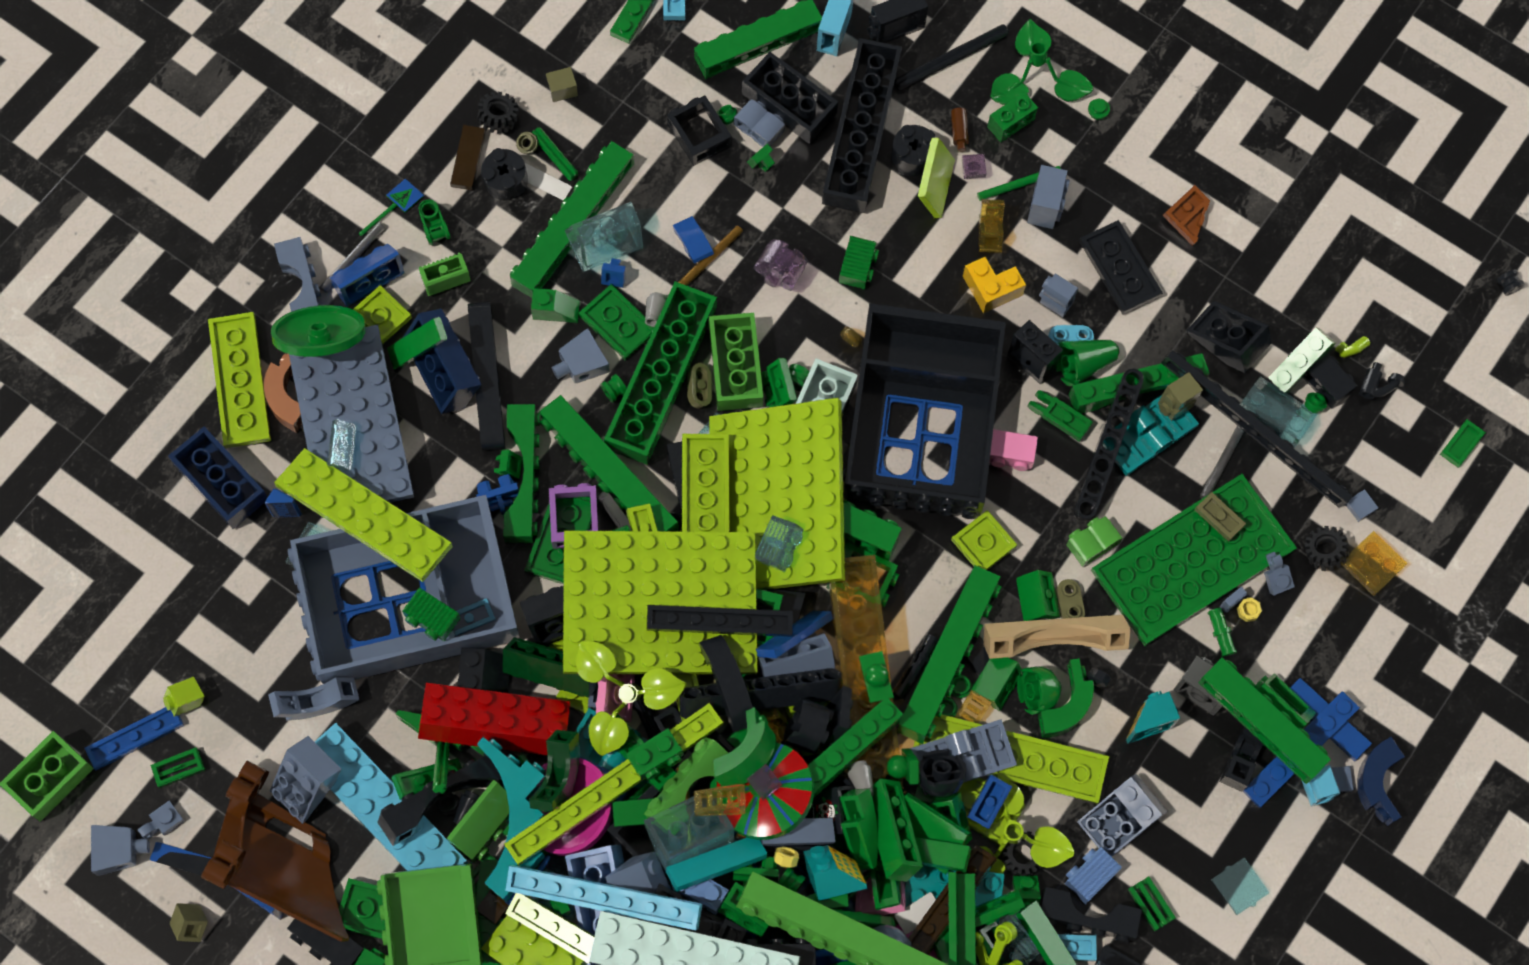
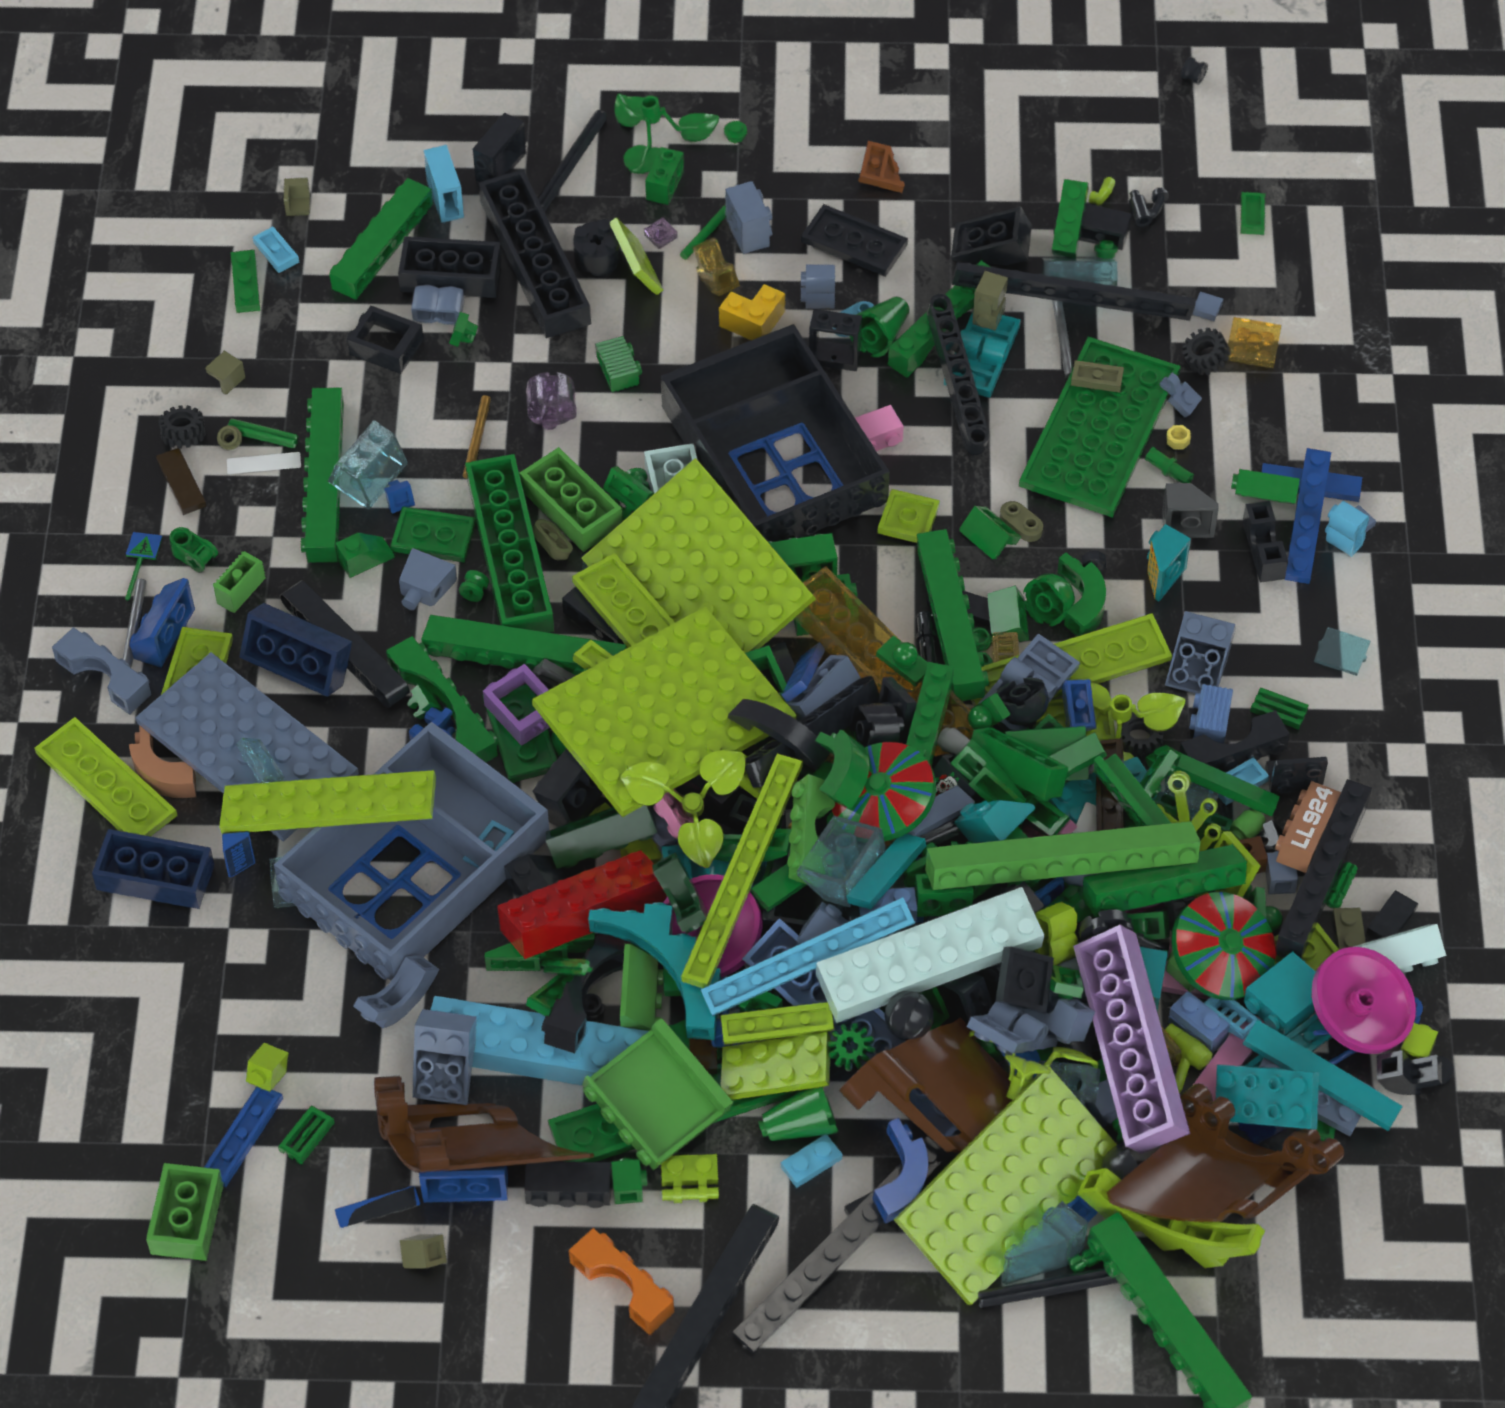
camera: 30 degrees left, 15 degrees down
(115, 848) = (300, 1233): sand blue torso -> none
(164, 820) = (326, 1185): sand blue plate -> none
(318, 331) = (162, 679): green dish -> none
(417, 343) = (265, 639): green tile -> none
(431, 615) = (461, 840): green brick -> none
(465, 803) = (610, 994): black cone -> none
(514, 173) = (230, 471): black brick -> none
(654, 306) = (460, 500): light grey cone -> none
(655, 754) = (763, 820): green bracket -> none
(693, 239) = (452, 428): blue slope -> none
(719, 620) = (732, 687): black plate -> none
(720, 792) = (861, 800): clear yellow slope -> none
(727, 114) = (402, 310): green plate -> none
(764, 782) = (880, 774): clear purple plate -> none
(779, 543) = (734, 603): clear light blue brick -> none
(786, 857) = (943, 834): light yellow tile -> none
(851, 336) = (659, 424): clear yellow tile -> none
(960, 128) = (623, 211): reddish brown cylinder -> none
(1061, 415) = (894, 381): green hinge -> none
(1093, 541) = (1003, 460): bright green brick -> none
(1100, 632) = (1003, 564): tan arch -> none
(1233, 599) = (1159, 434): sand blue tile -> none
(1264, 720) = (1263, 494): green brick -> none
(1371, 778) = (1386, 506): dark blue arch -> none

